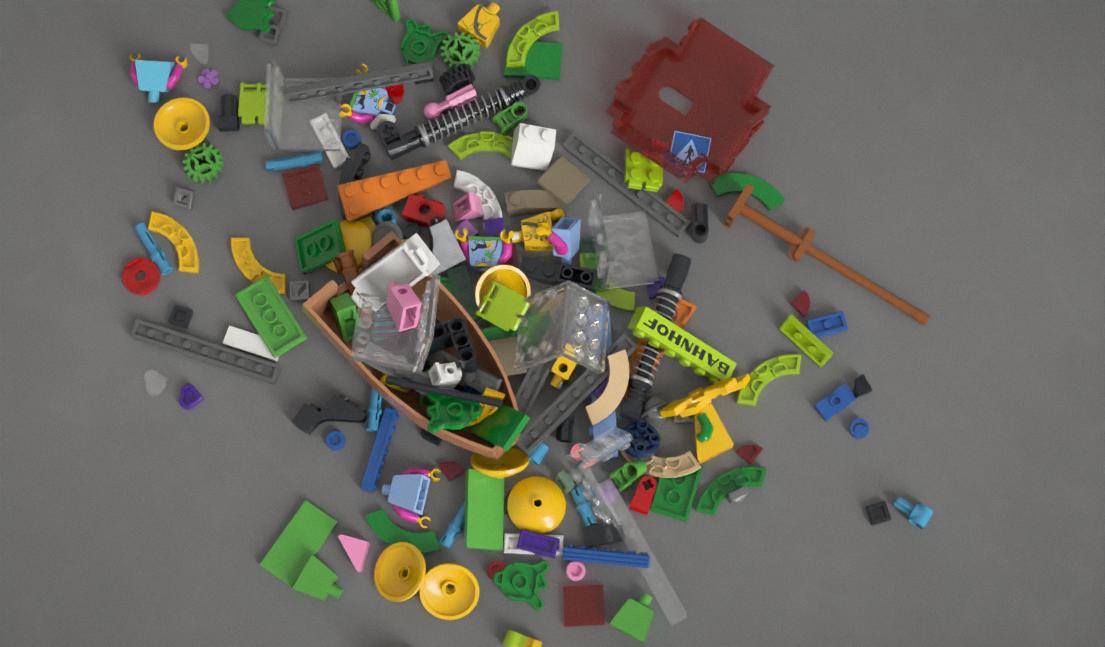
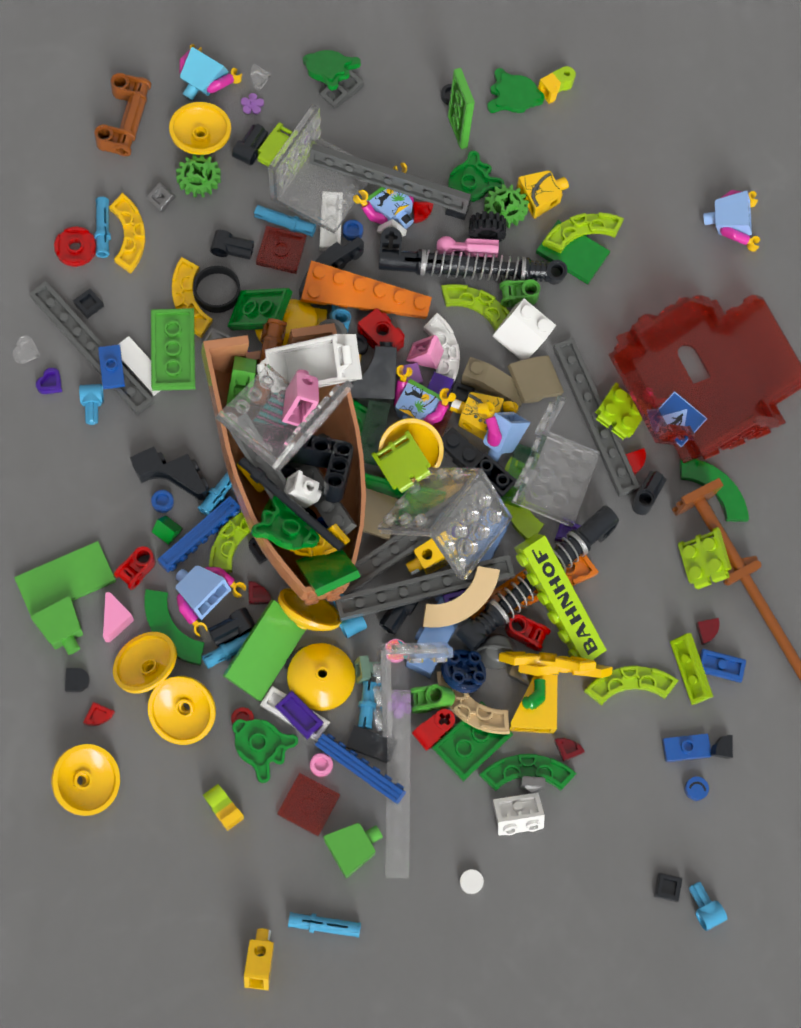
camera: 20 degrees right, 5 degrees down
(119, 143) = (135, 94): none -> dark orange piece
(231, 392) = (91, 398): none -> dark azure axle
(232, 358) = (111, 366): none -> blue plate
(260, 207) = (226, 244): none -> black piece
(262, 234) = (216, 270): none -> black tyre
(347, 504) = (135, 568): none -> red piece
(352, 460) = (166, 529): none -> green slope
(355, 614) = (76, 680): none -> black tile
(387, 630) = (98, 715): none -> red tile
(404, 443) = (227, 541): none -> lime tile
(450, 504) = (236, 625): none -> black piece
(512, 223) = (461, 391): none -> black tile
(674, 382) = (528, 633): none -> red piece
(735, 592) = (471, 881): none -> white tile
(741, 522) = (518, 814): none -> white bracket
(771, 250) = (705, 559): none -> lime plate

